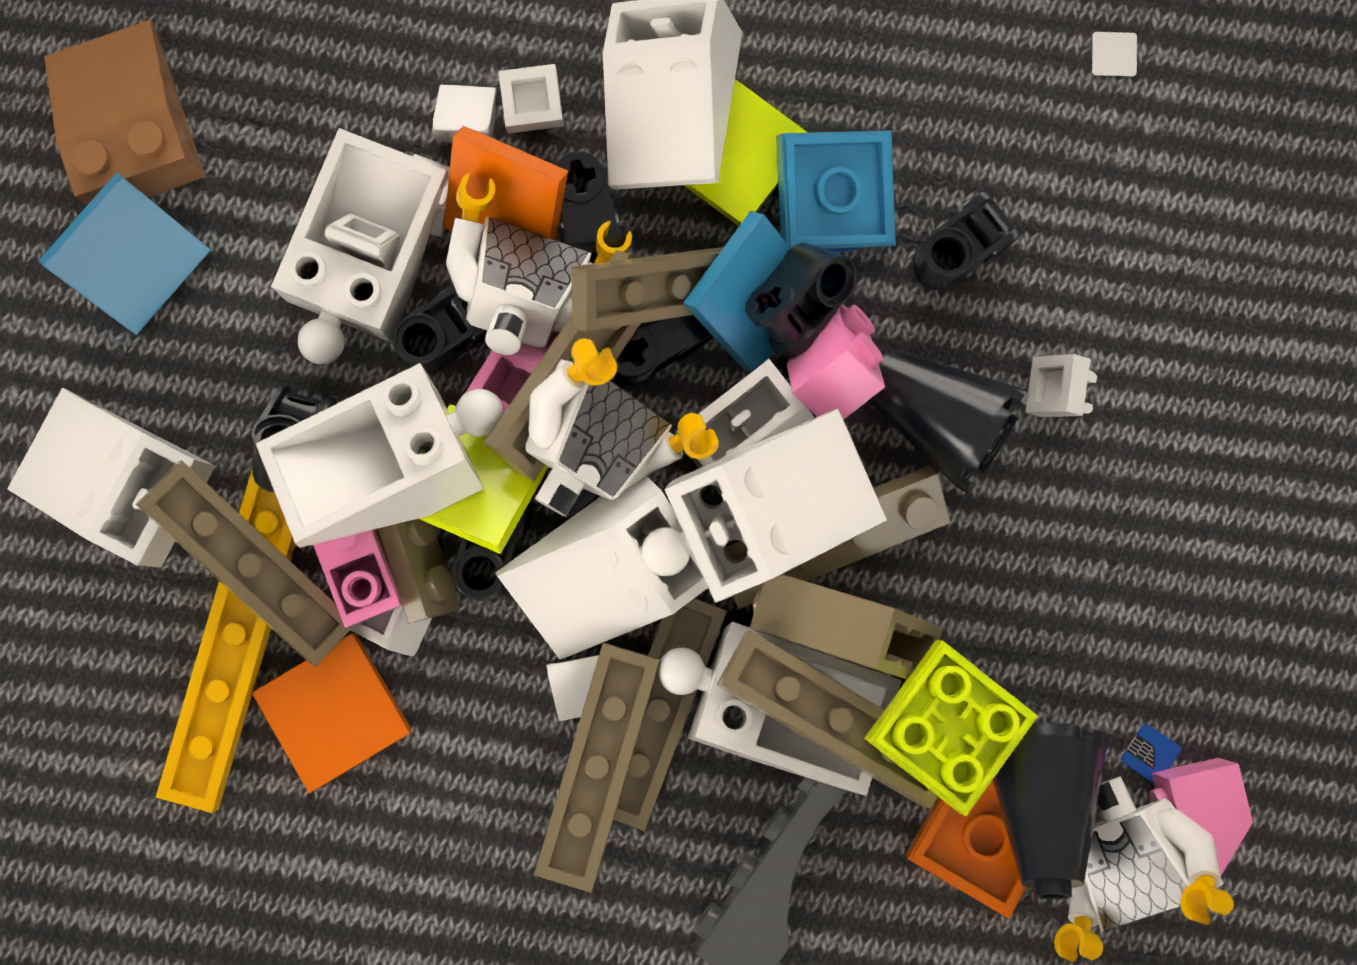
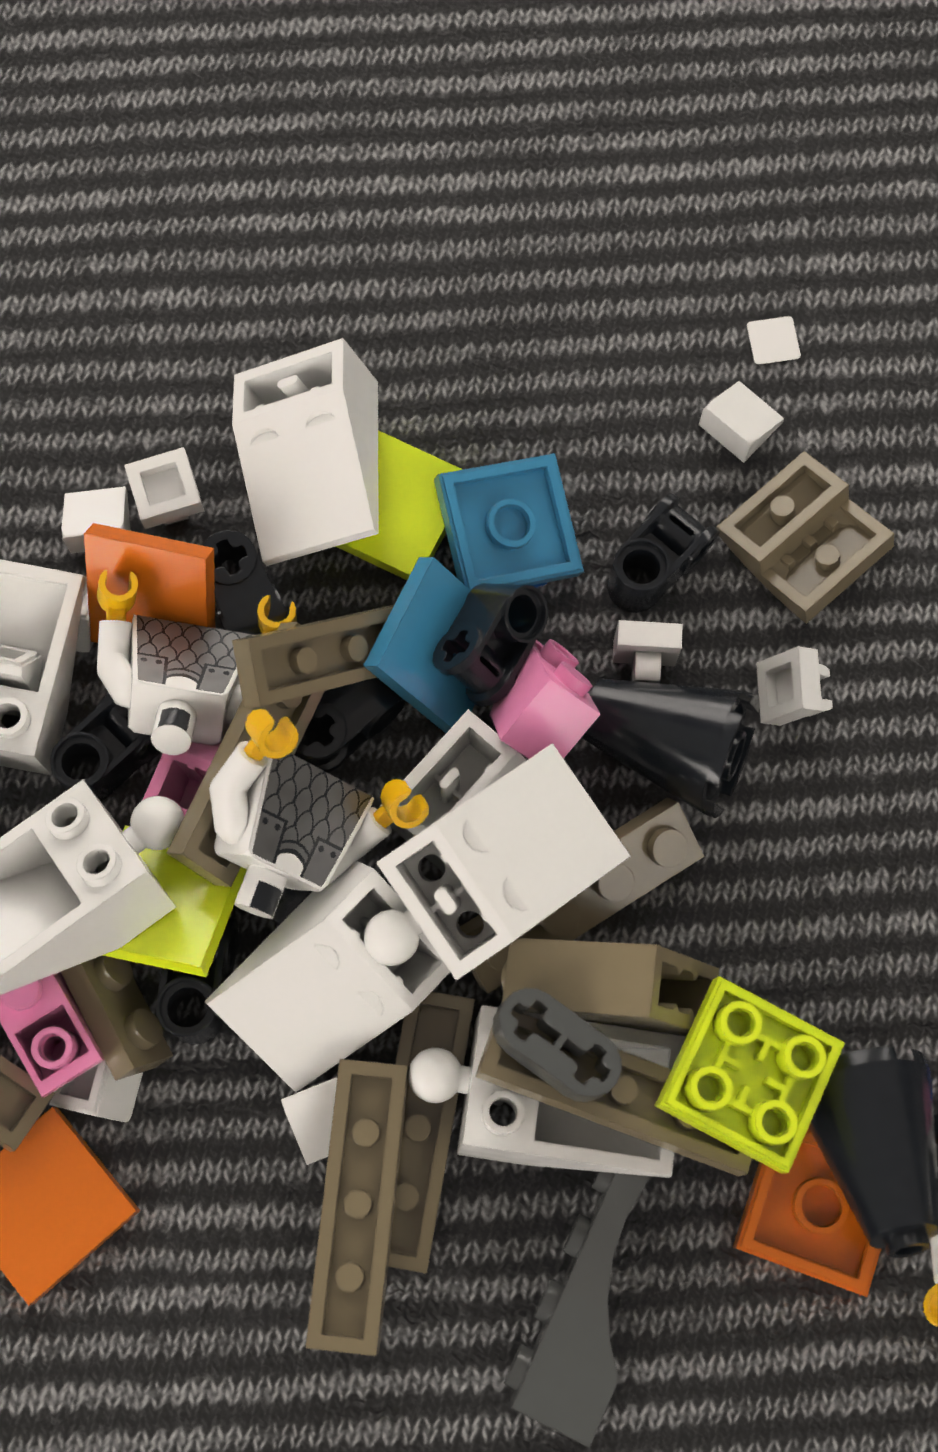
camera: 10 degrees left, 10 degrees down
(801, 664) = (567, 1032): none -> dark grey beam
(938, 328) = (647, 647): none -> white tile
(1067, 127) = (740, 420): none -> white slope
(1102, 248) = (805, 536): none -> dark tan slope

